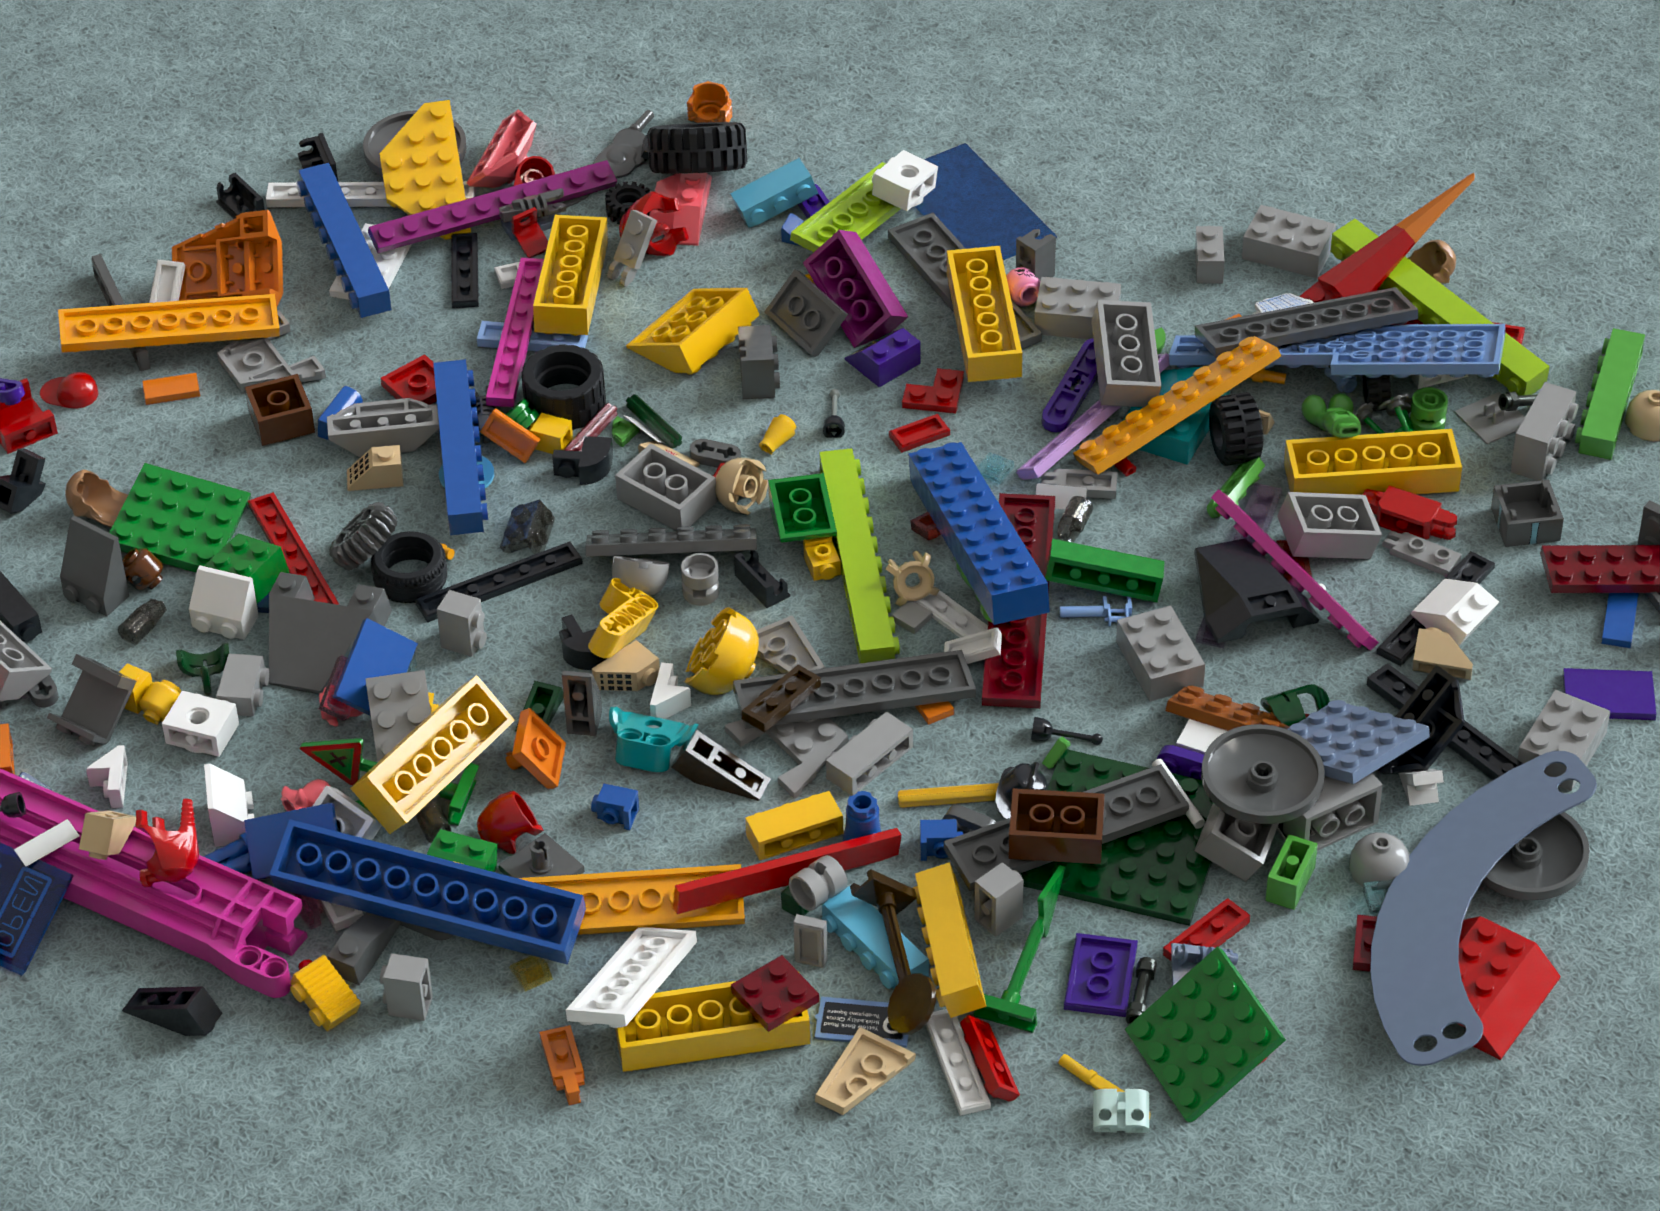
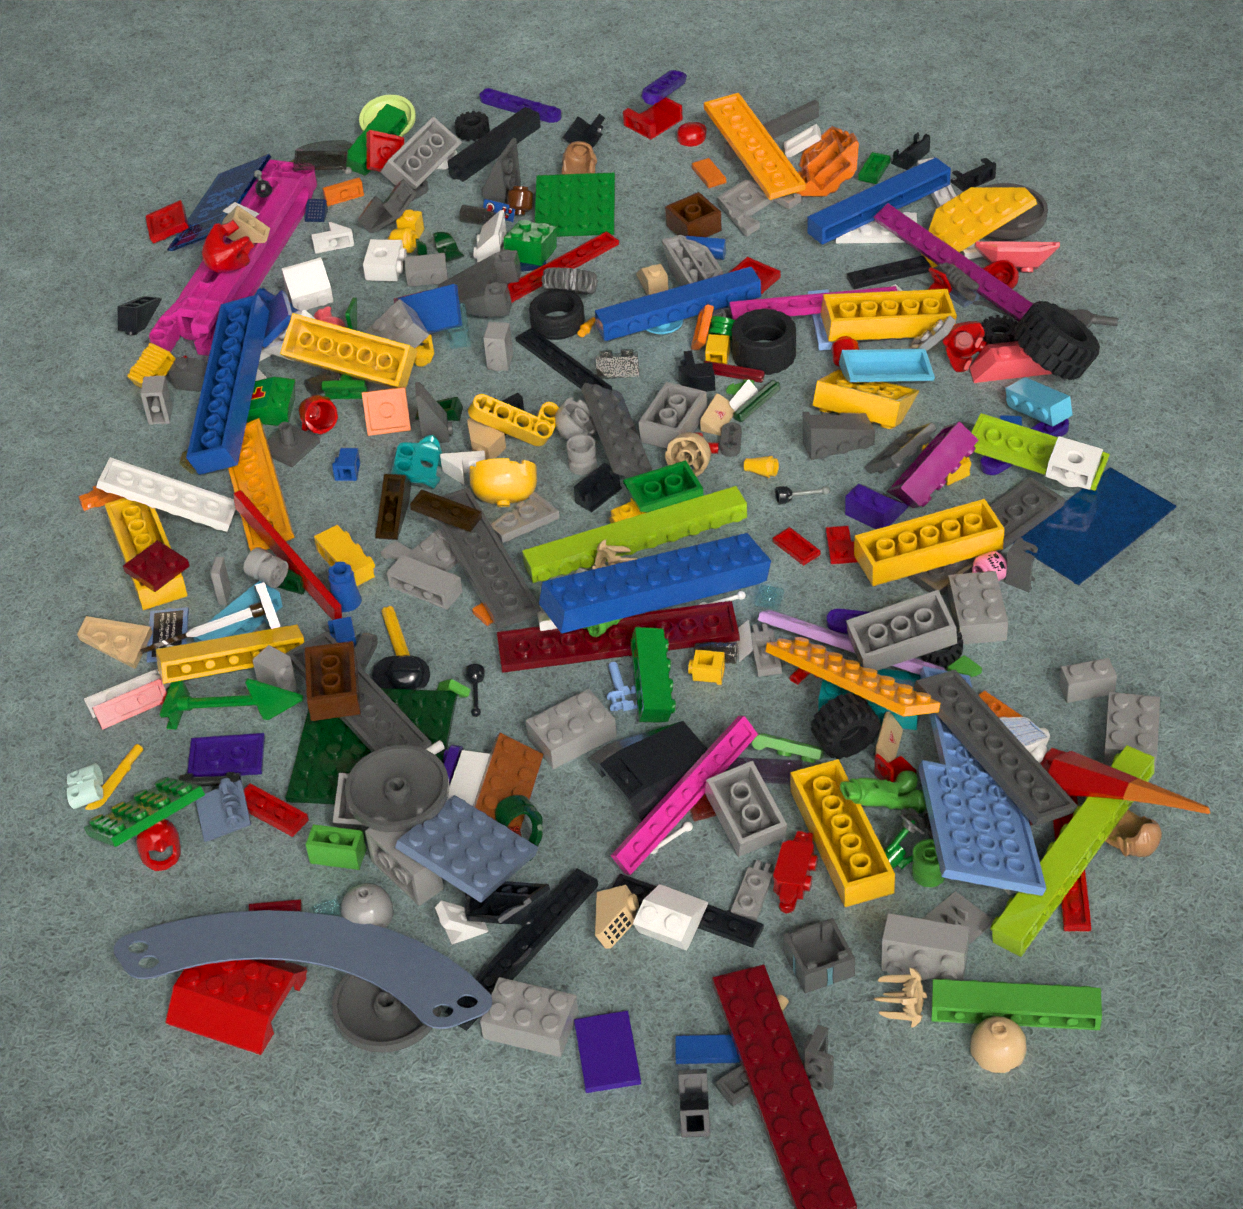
camera: 80 degrees right, 0 degrees up
(142, 595) = (494, 206): none -> blue sticker
(608, 328) = (840, 344): none -> red head
(658, 298) = (886, 365): none -> medium azure slope
(709, 103) = (1135, 347): orange hair -> none
(1095, 534) = (707, 666): none -> yellow brick
(1290, 420) = (890, 770): none -> red bracket
(1511, 401) = (992, 957): pearl dark grey bar -> none
(1603, 466) = (911, 997): none -> tan piece

